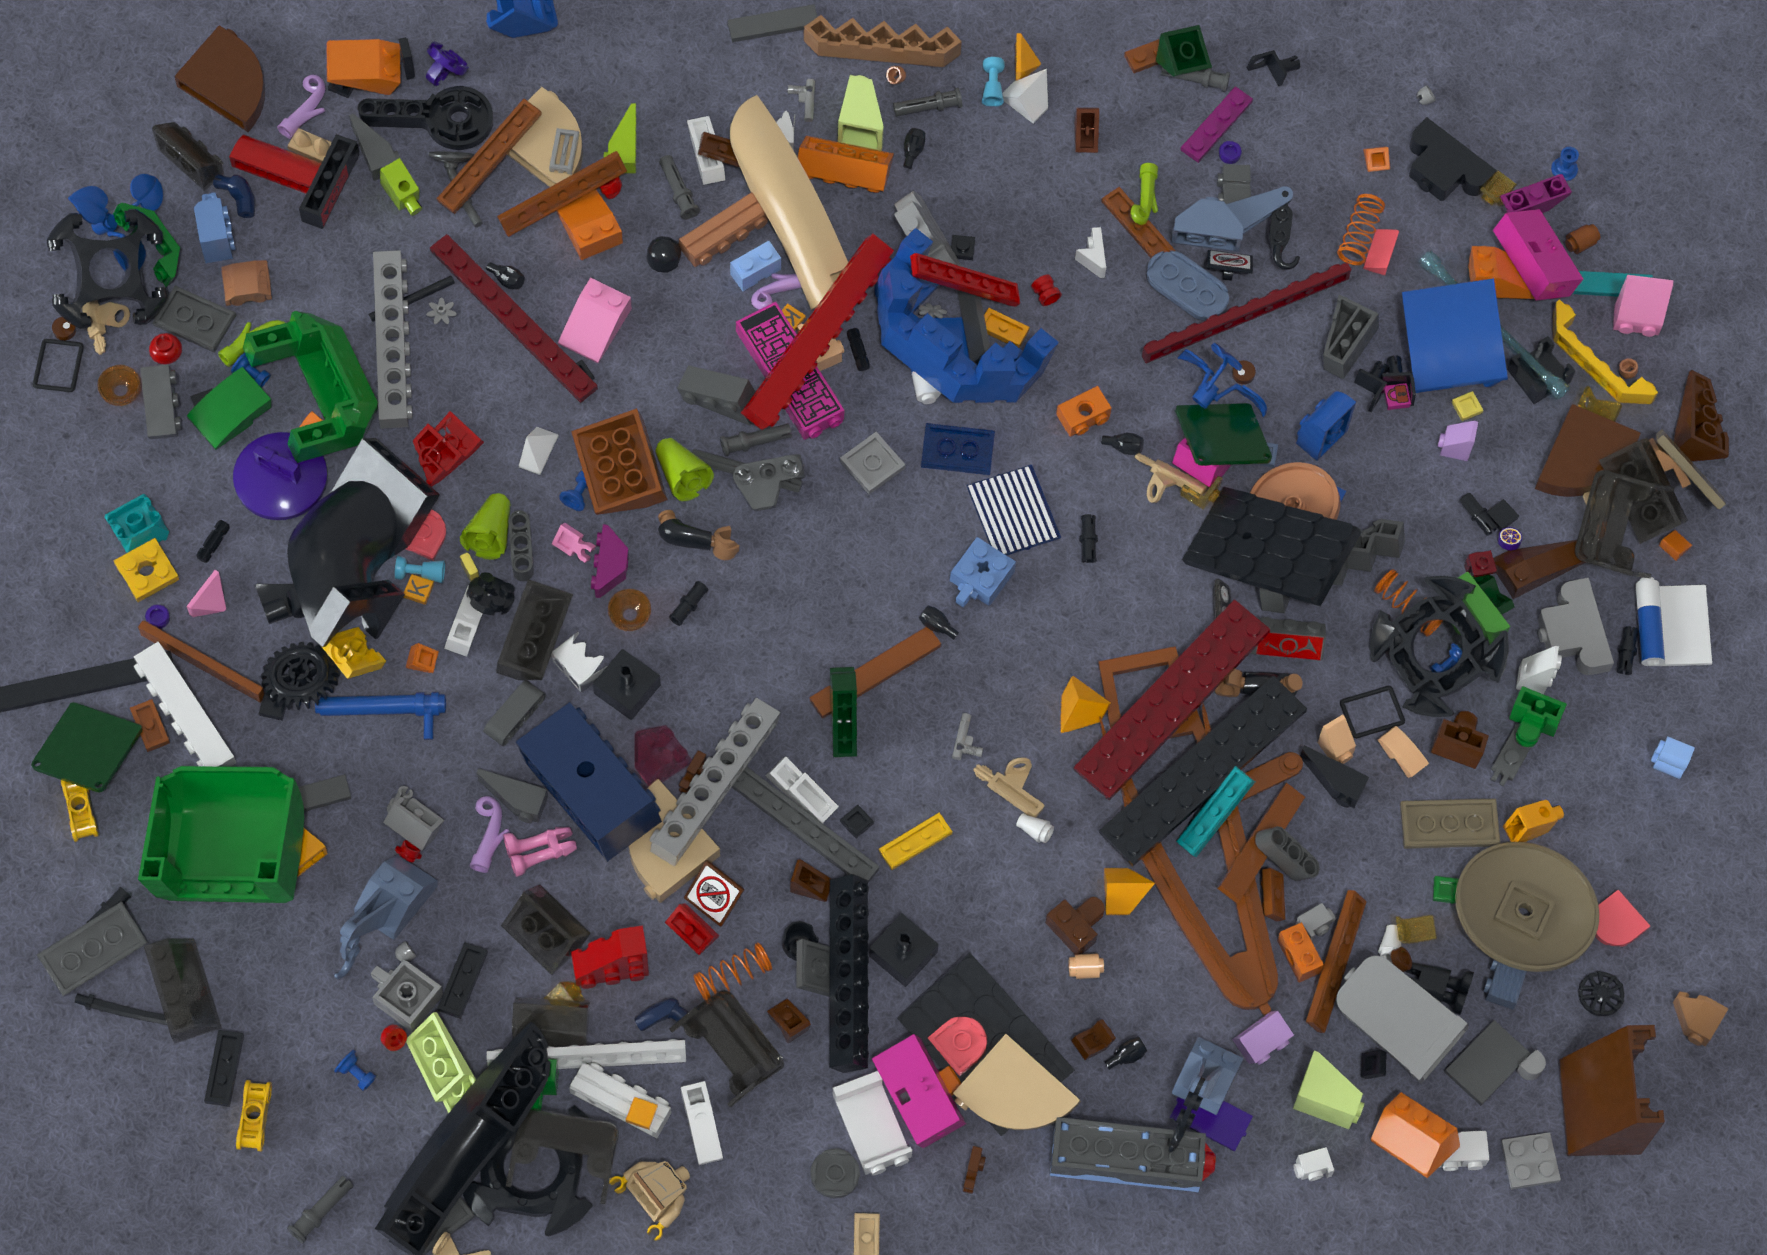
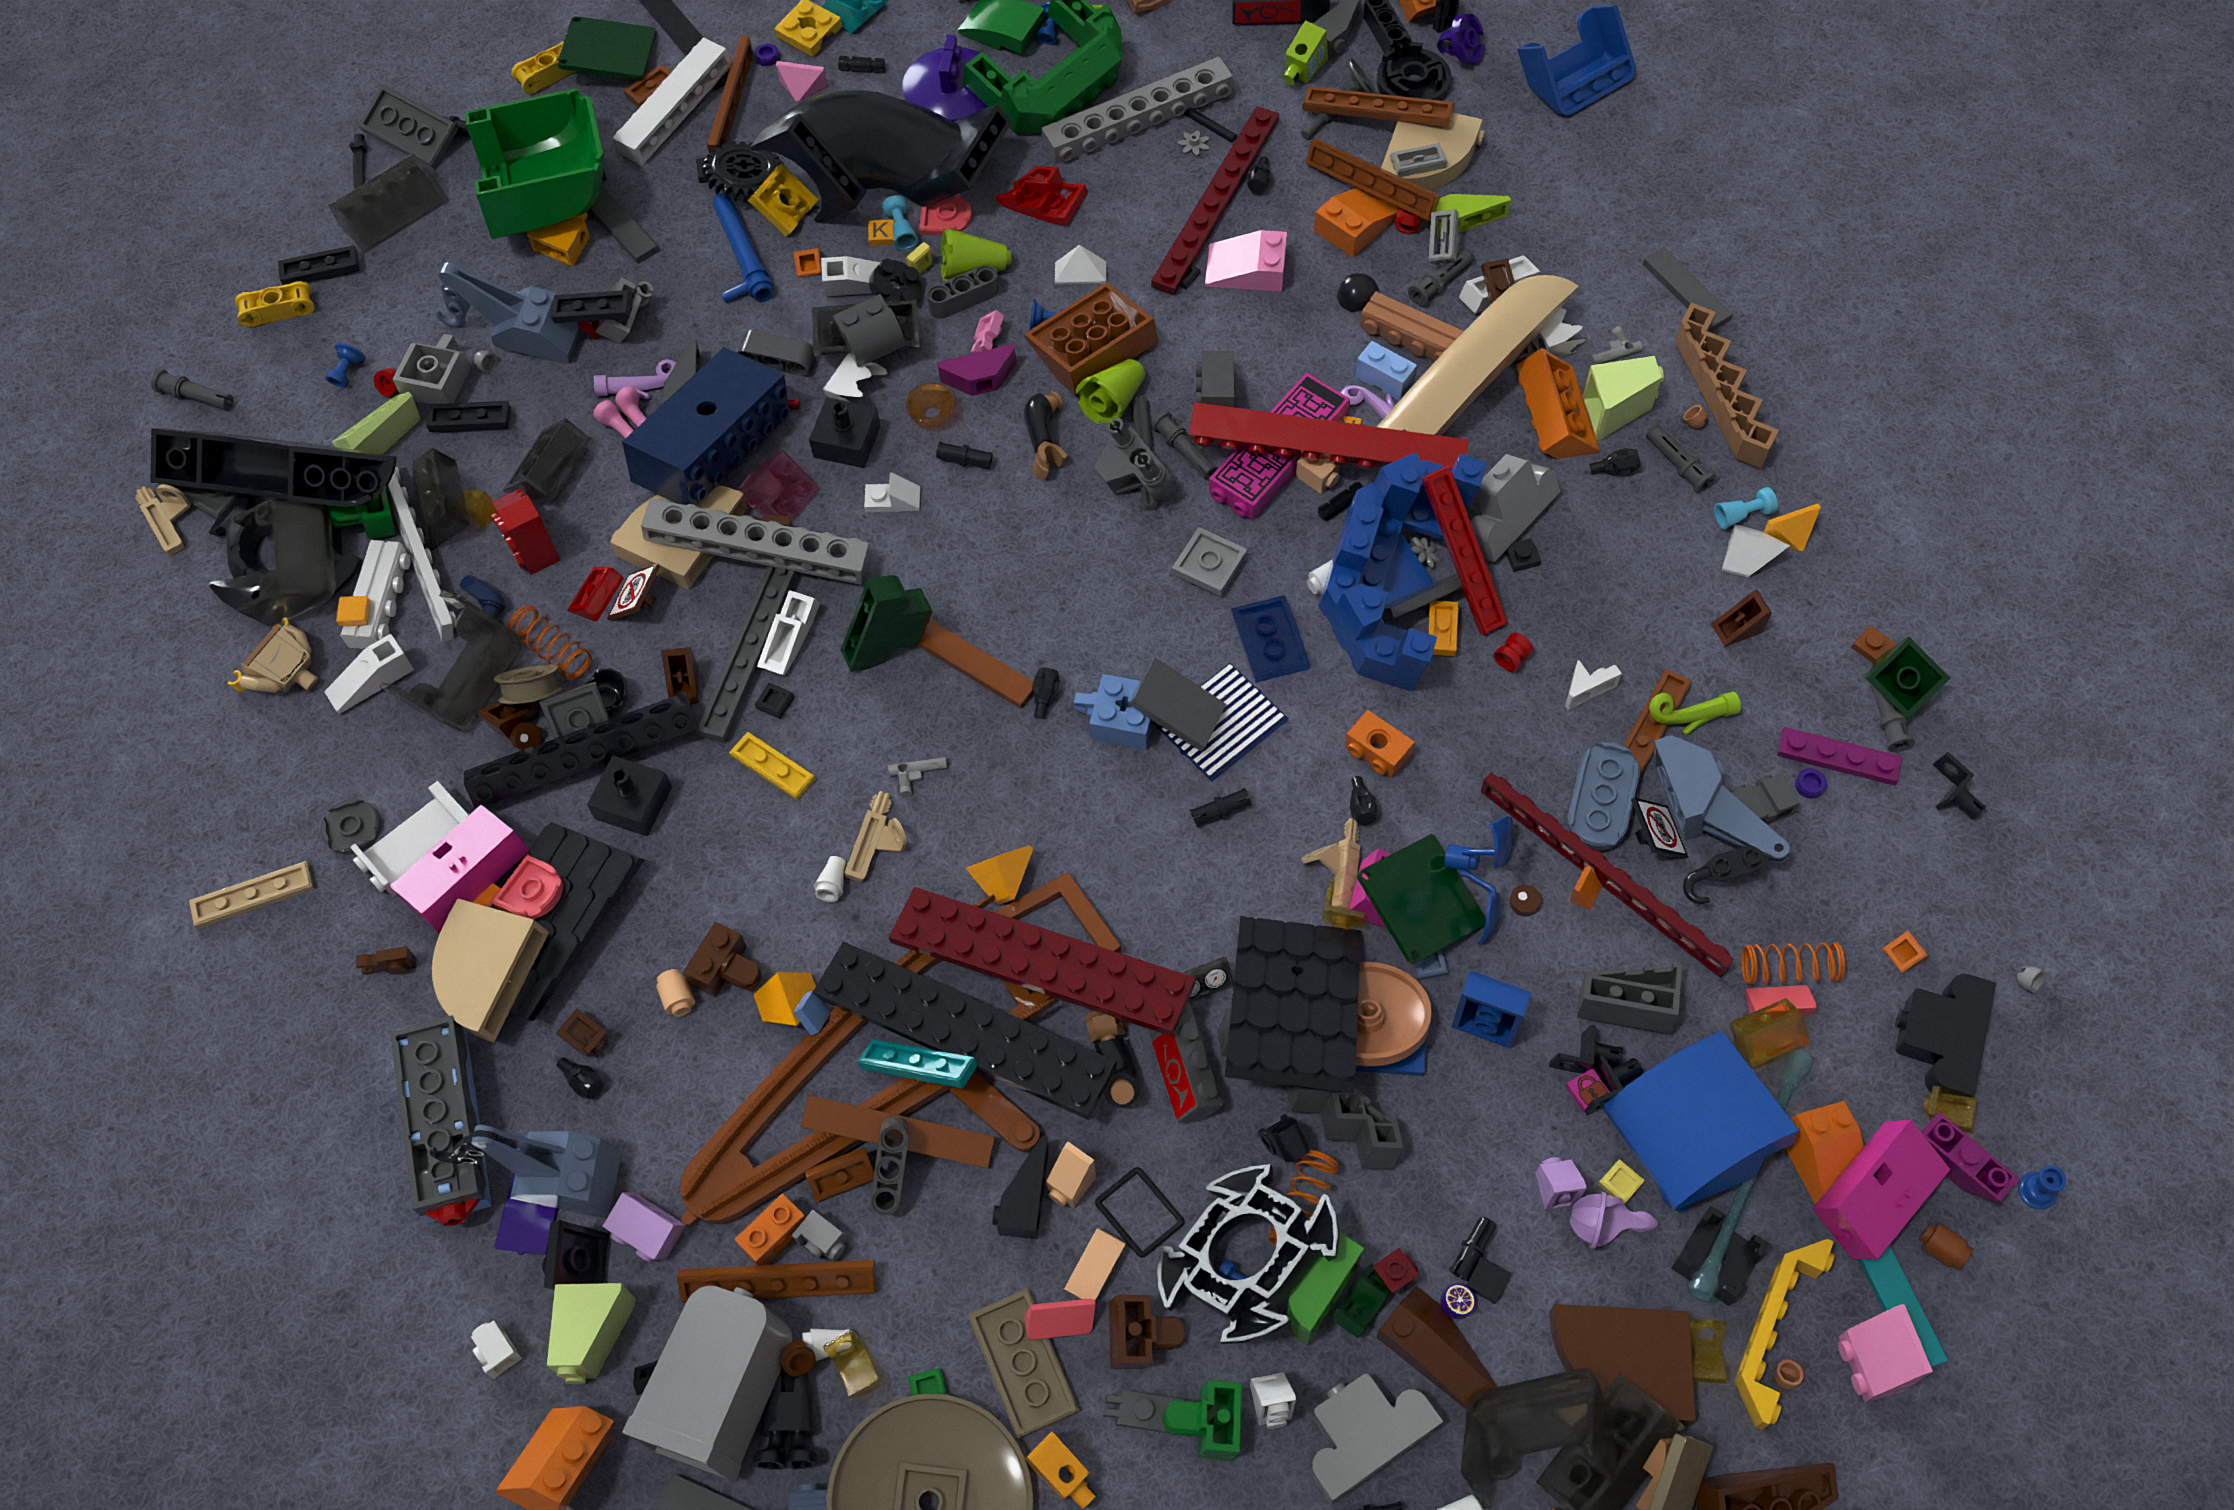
camera: 75 degrees right, 5 degrees down
(418, 835) = (591, 306): none -> black plate
(548, 623) = (869, 330): none -> dark grey brick
(666, 177) = (1453, 236): none -> light grey tile
(702, 672) = (892, 497): none -> white slope
(772, 995) = (528, 684): none -> dark tan wheel
(813, 1014) = (525, 735): none -> reddish brown tile
(999, 530) = (1177, 704): none -> dark grey tile
(1145, 871) = (811, 1013): none -> medium blue tile
(1251, 330) = (1586, 889): none -> orange slope
(1273, 1090) = (574, 1255): none -> black tile
(1363, 595) = (1285, 1139): none -> black piece
(1406, 266) = (1769, 1032): none -> clear yellow brick
(1433, 786) = (1059, 1319): none -> coral slope
(1490, 429) = (1602, 1217): none -> lavender piece

